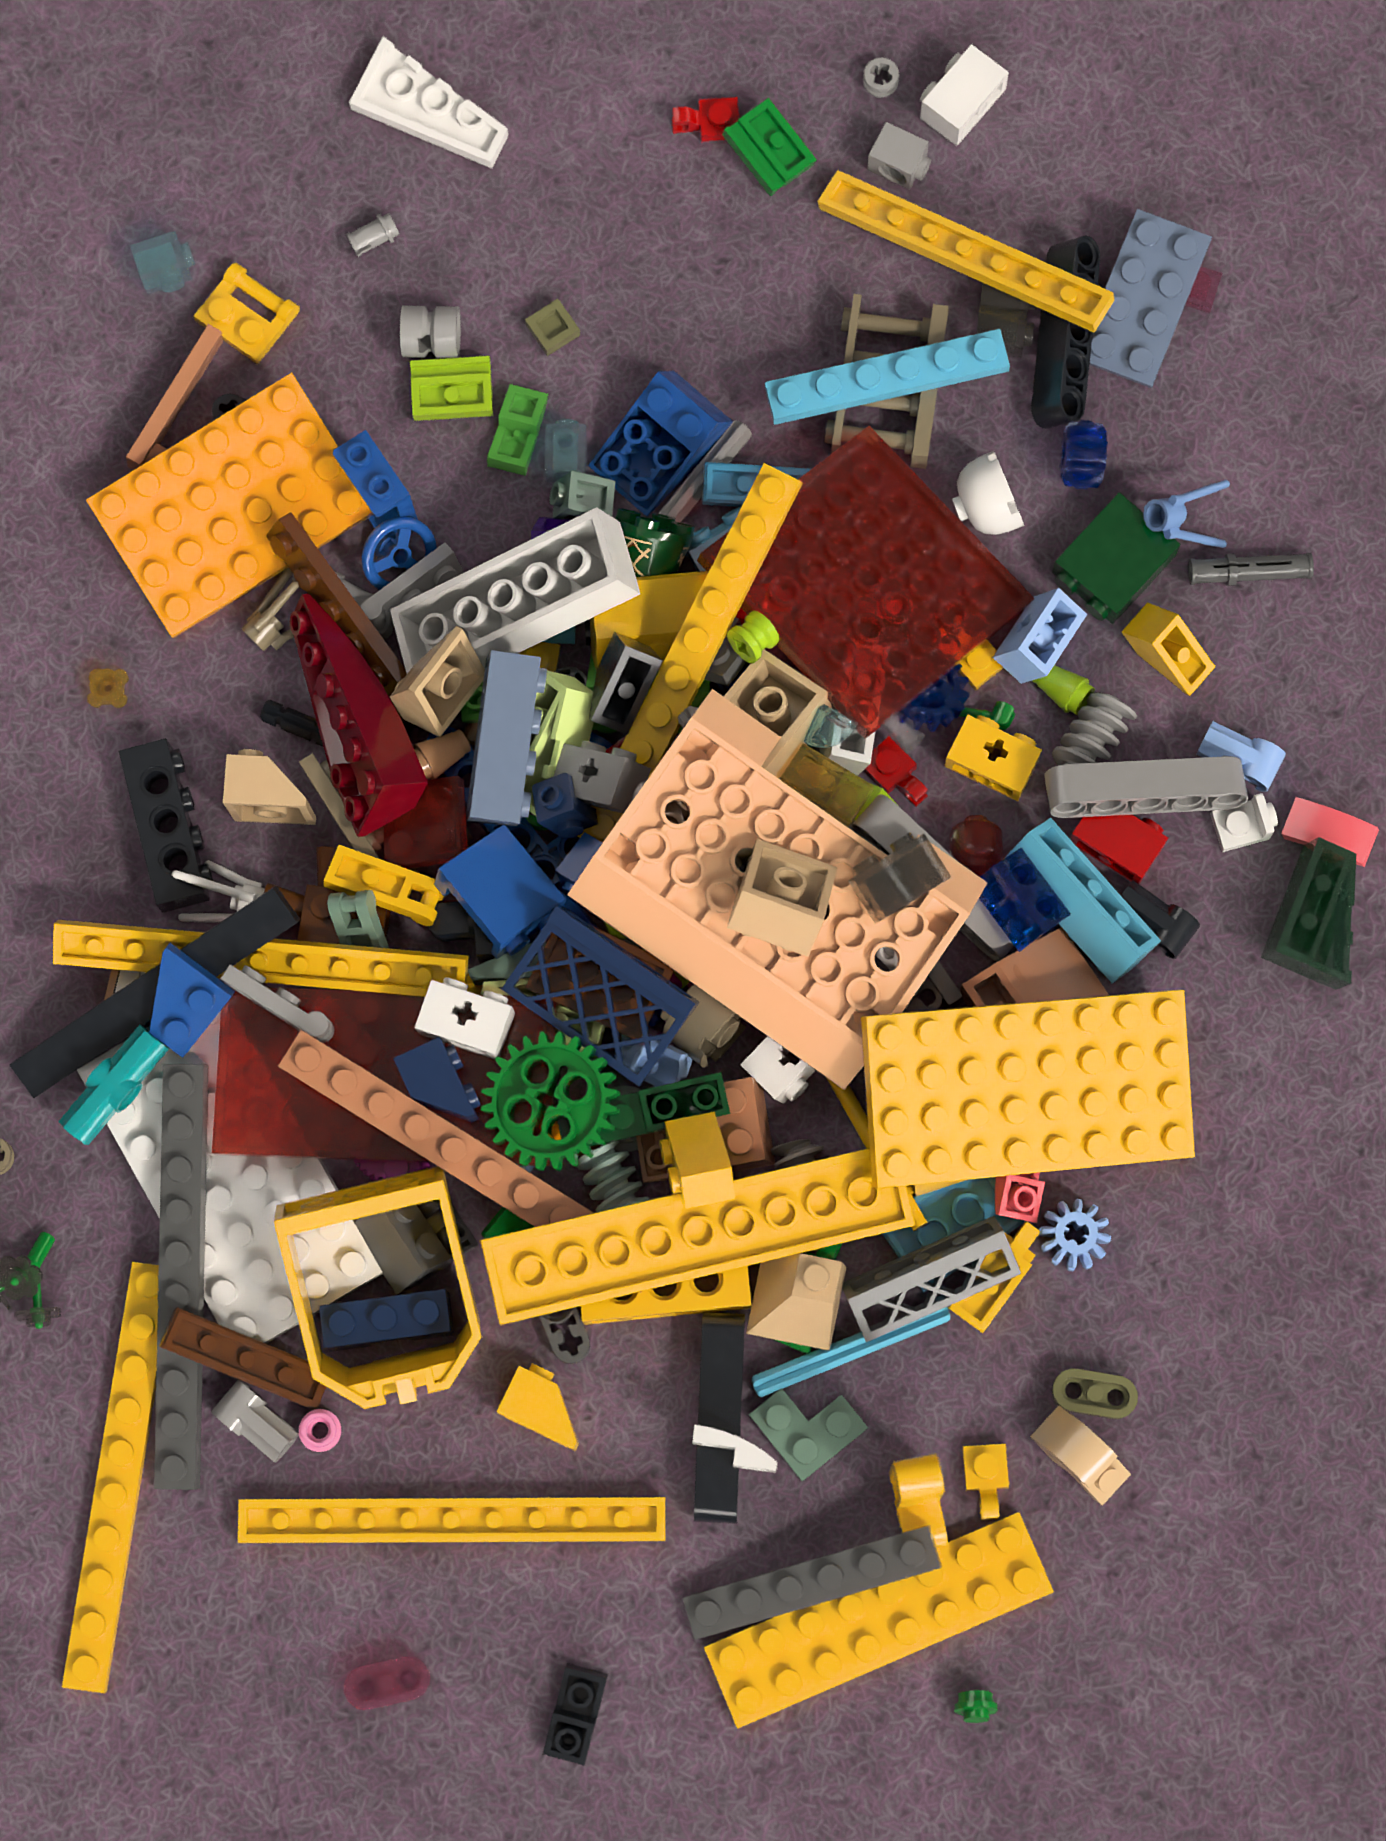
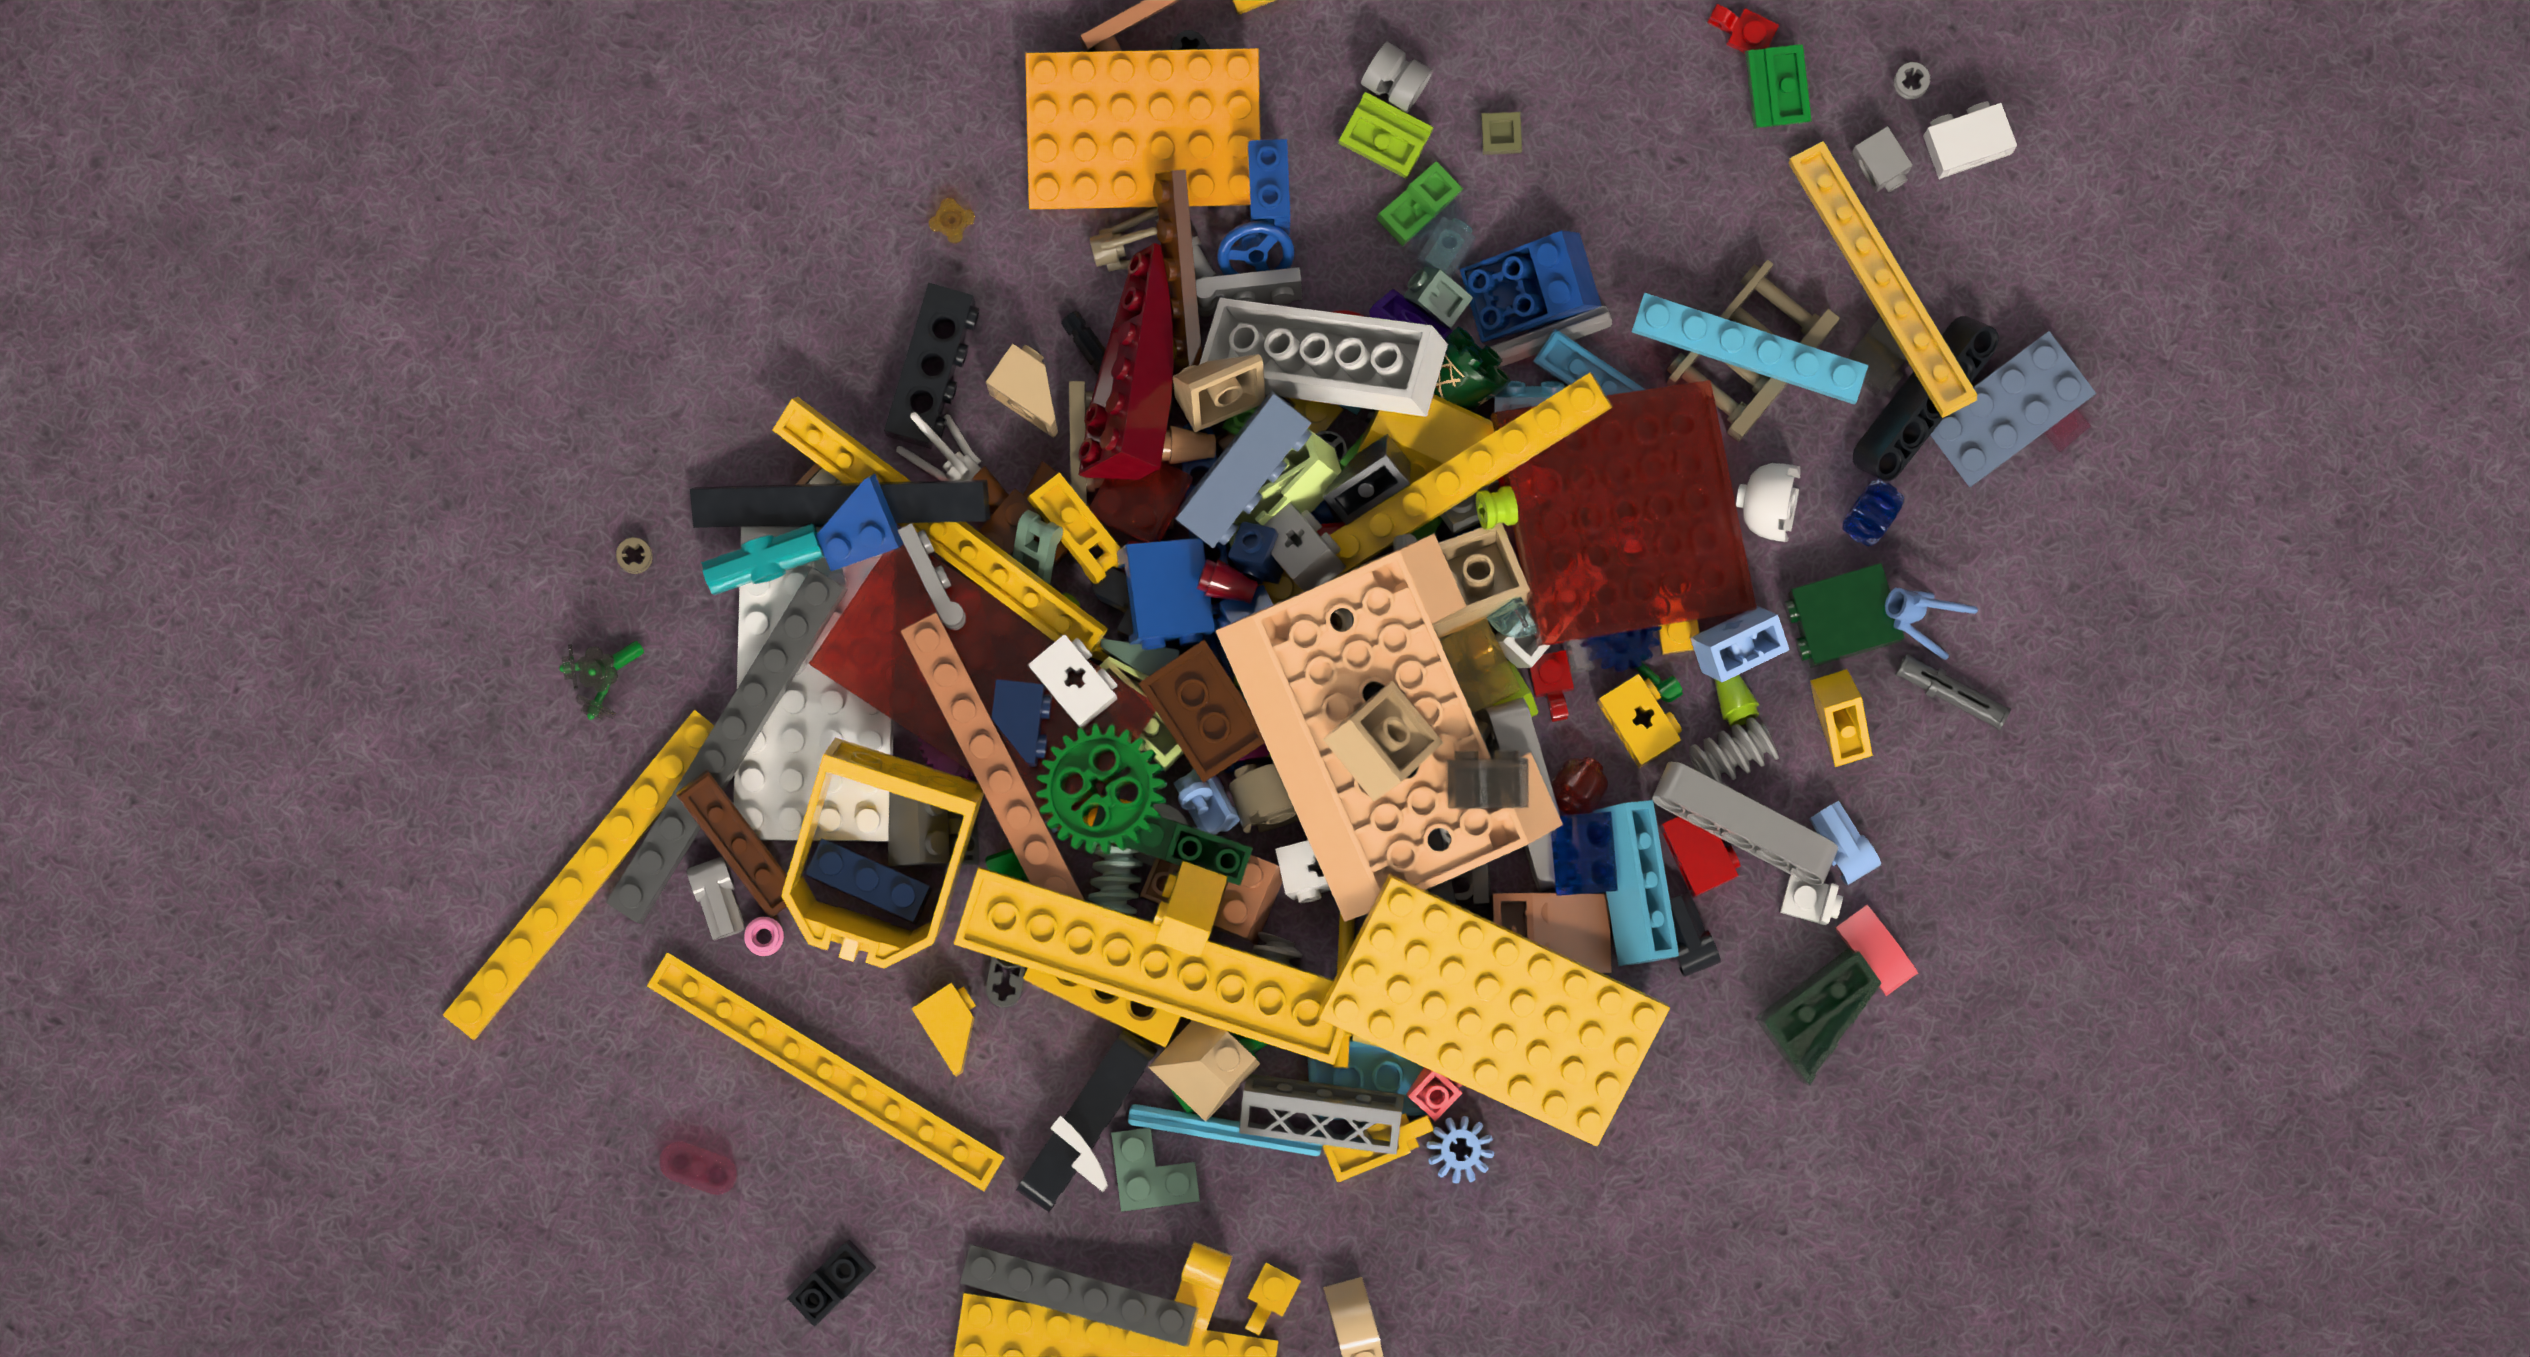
camera: 25 degrees right, 5 degrees up
(550, 848) = (1225, 582): none -> dark red cone
(621, 964) = (1226, 715): dark blue fence -> none
(1094, 1393) = (1396, 1285): olive plate -> none

